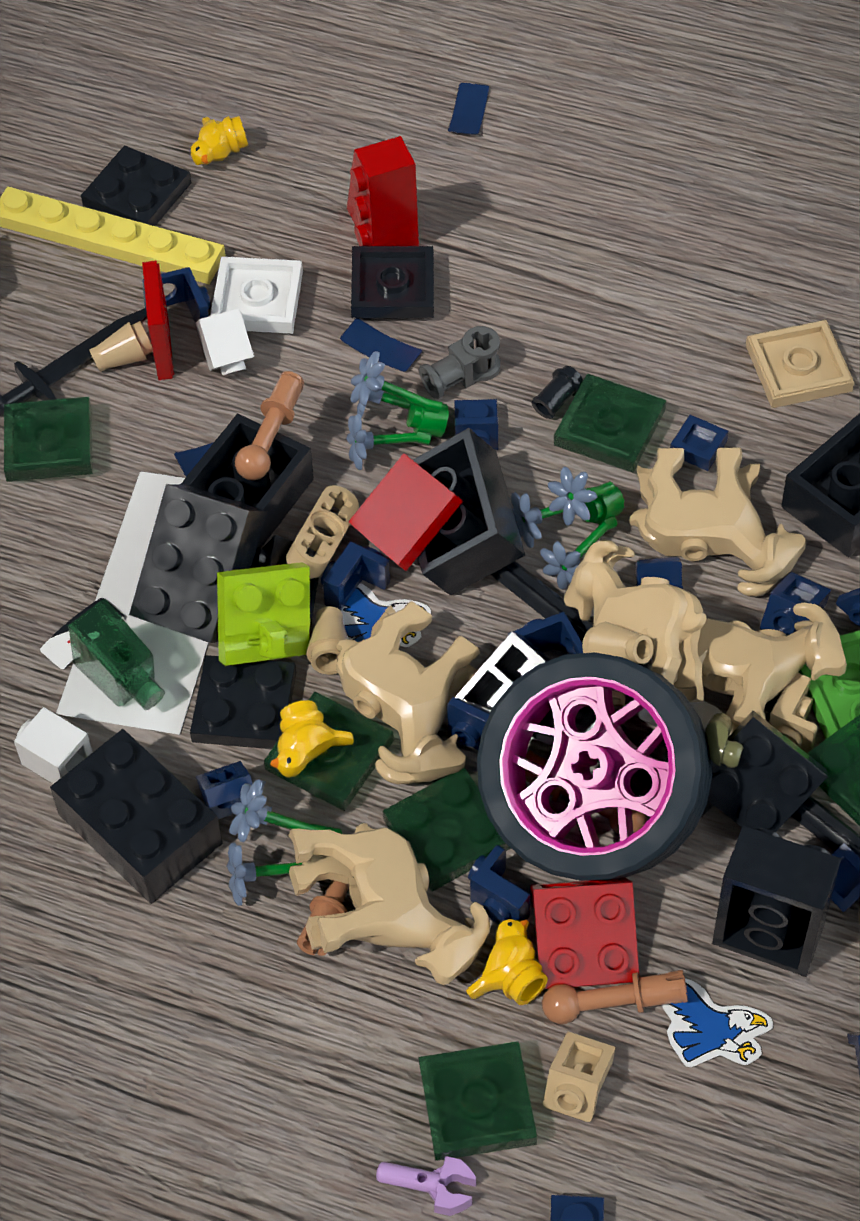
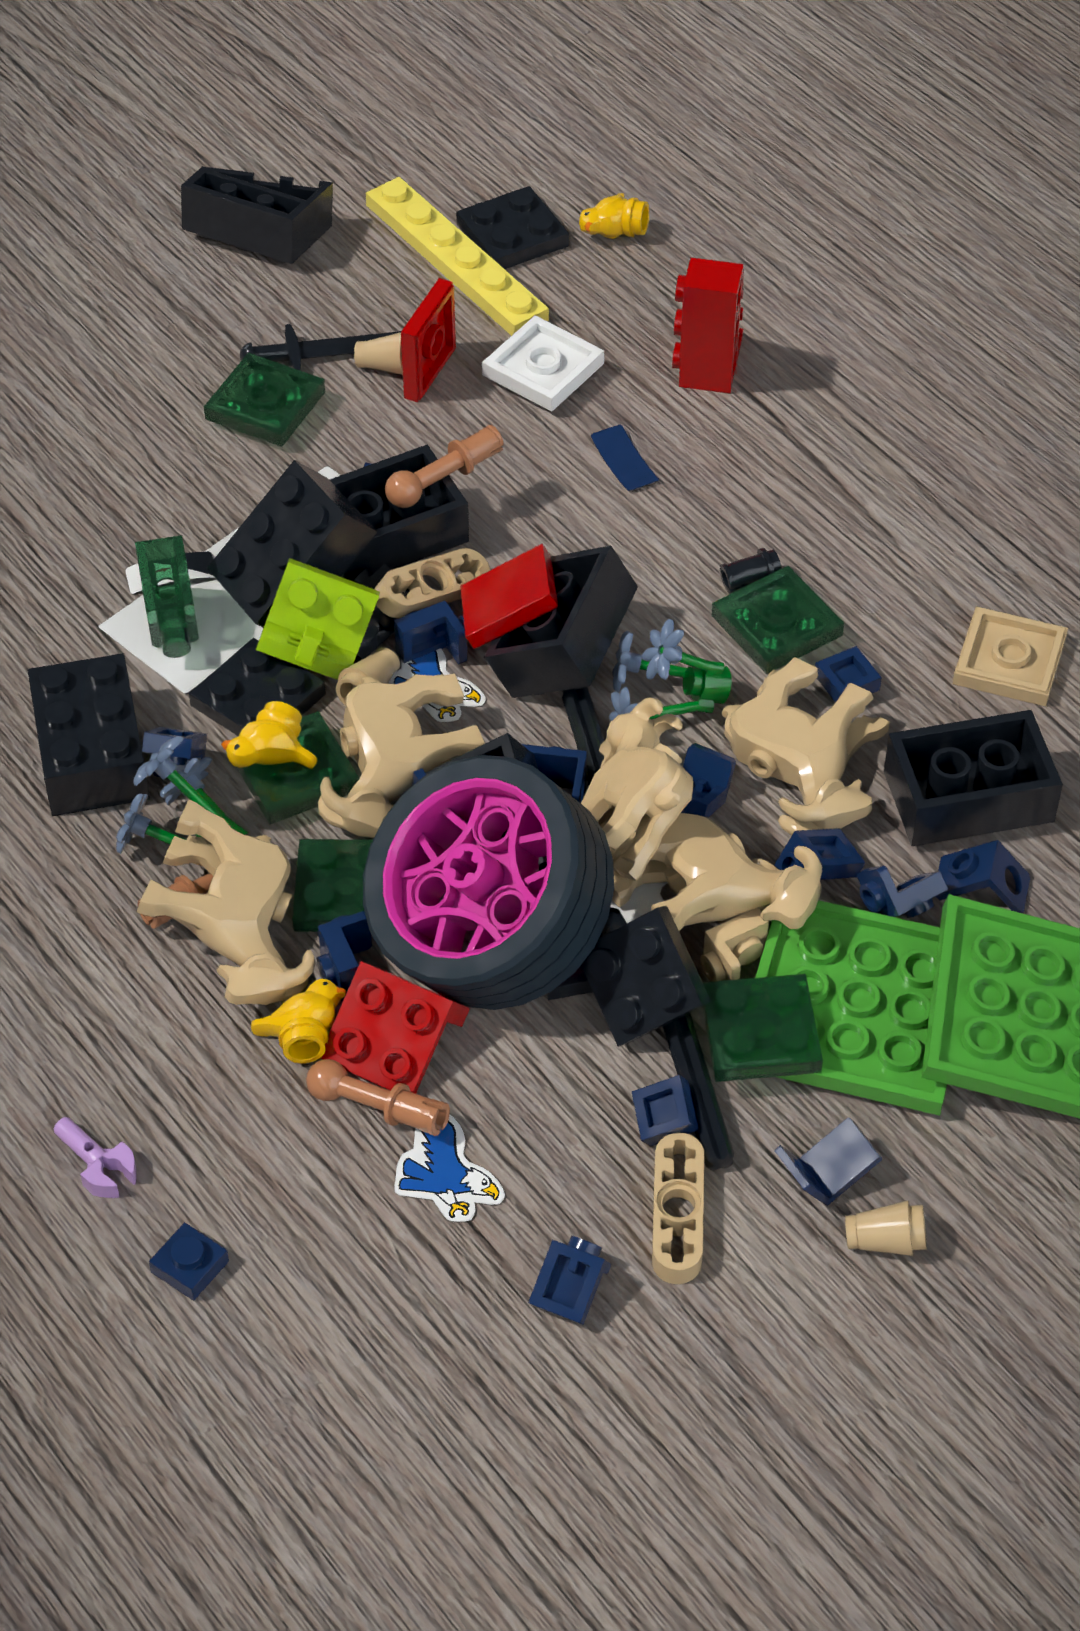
camera: 30 degrees right, 5 degrees down
(51, 745) = (63, 637): white brick -> none
(186, 290) = (480, 333): dark blue bracket -> none
(225, 341) = (477, 386): white brick -> none
(392, 282) = (675, 406): black plate -> none
(423, 415) = (604, 531): plant -> none
(464, 362) = (684, 504): dark grey connector -> none
(469, 108) = (879, 292): dark blue sticker -> none
(477, 1101) = (185, 1113): clear green plate -> none
(479, 417) = (654, 563): dark blue bracket -> none
(577, 1076) = (286, 1138): tan bracket -> none
(618, 641) = (588, 786): tan cone -> none
(719, 748) = (611, 922): olive arm -> none
(775, 899) = (562, 1079): black brick -> none

